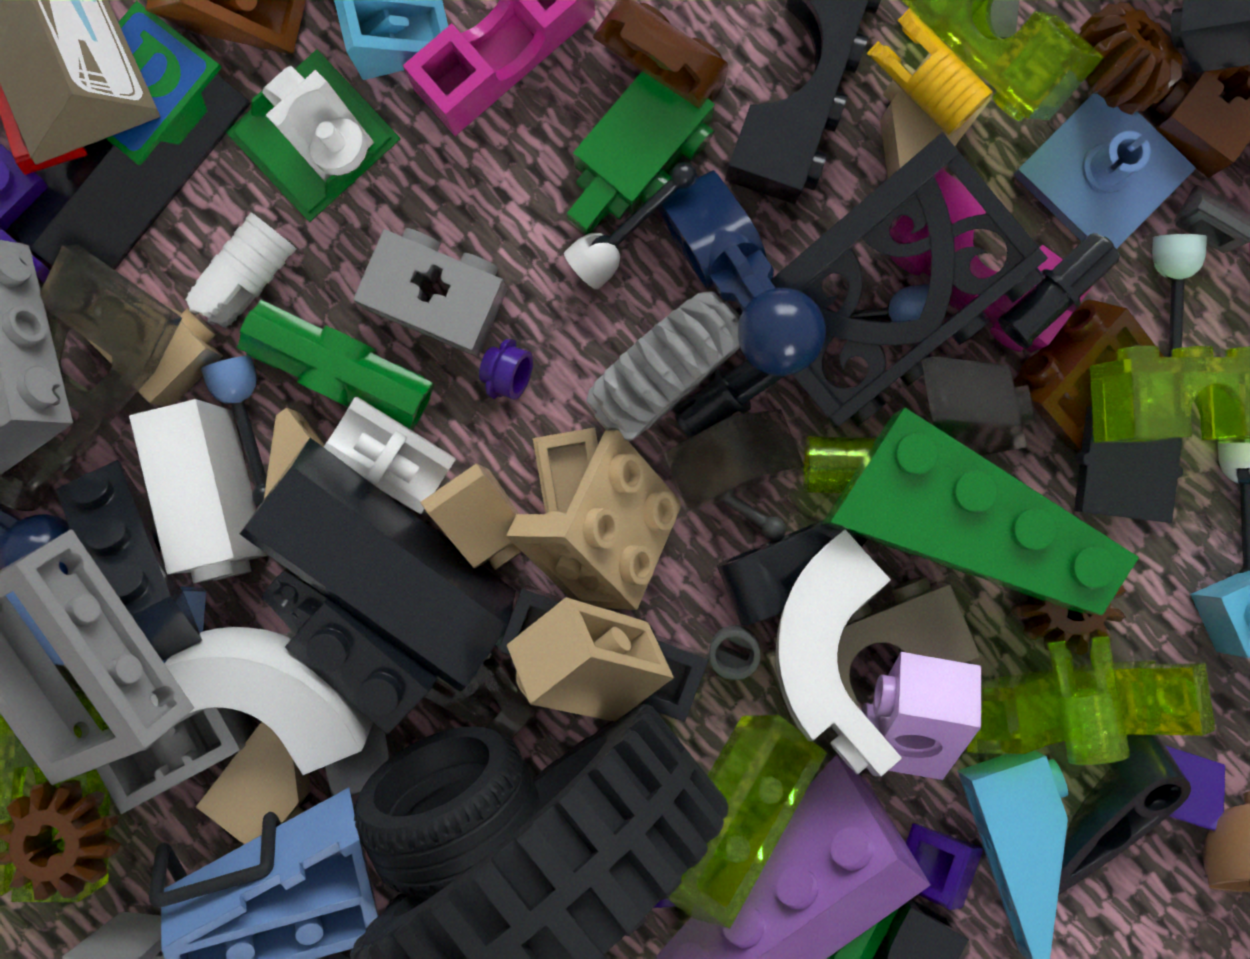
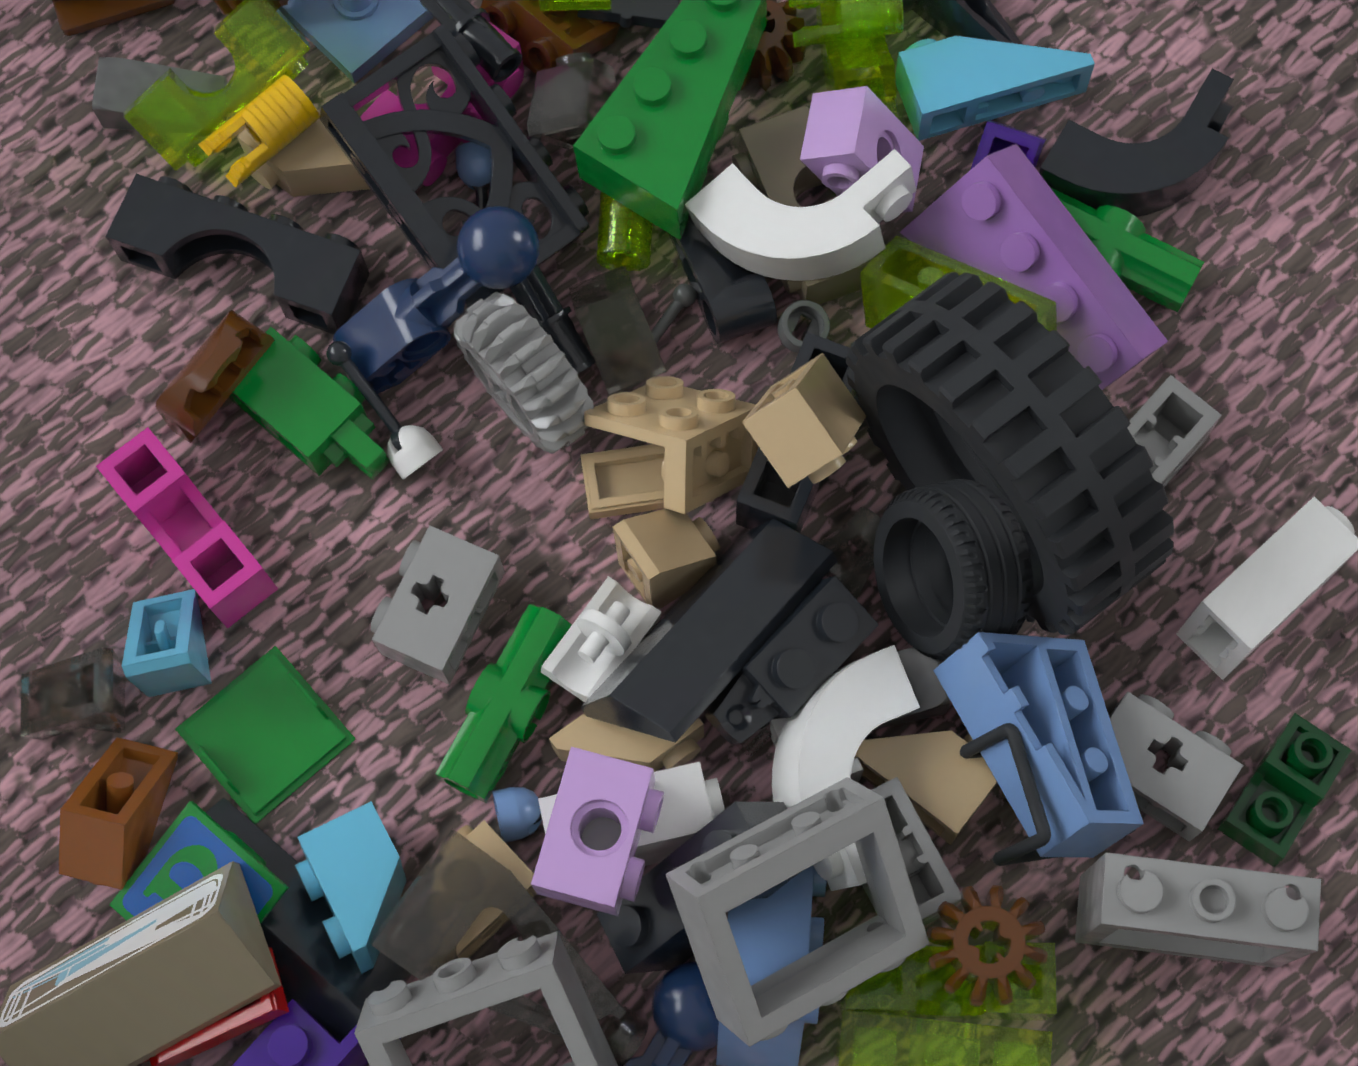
camera: 85 degrees left, 15 degrees down
(101, 451) = (589, 790): none -> lavender brick
(155, 230) = (359, 877): none -> medium azure slope
(239, 272) = (400, 796): white hinge -> none
(316, 122) = (263, 696): white hips -> none
(506, 370) = (519, 538): dark purple plate -> none

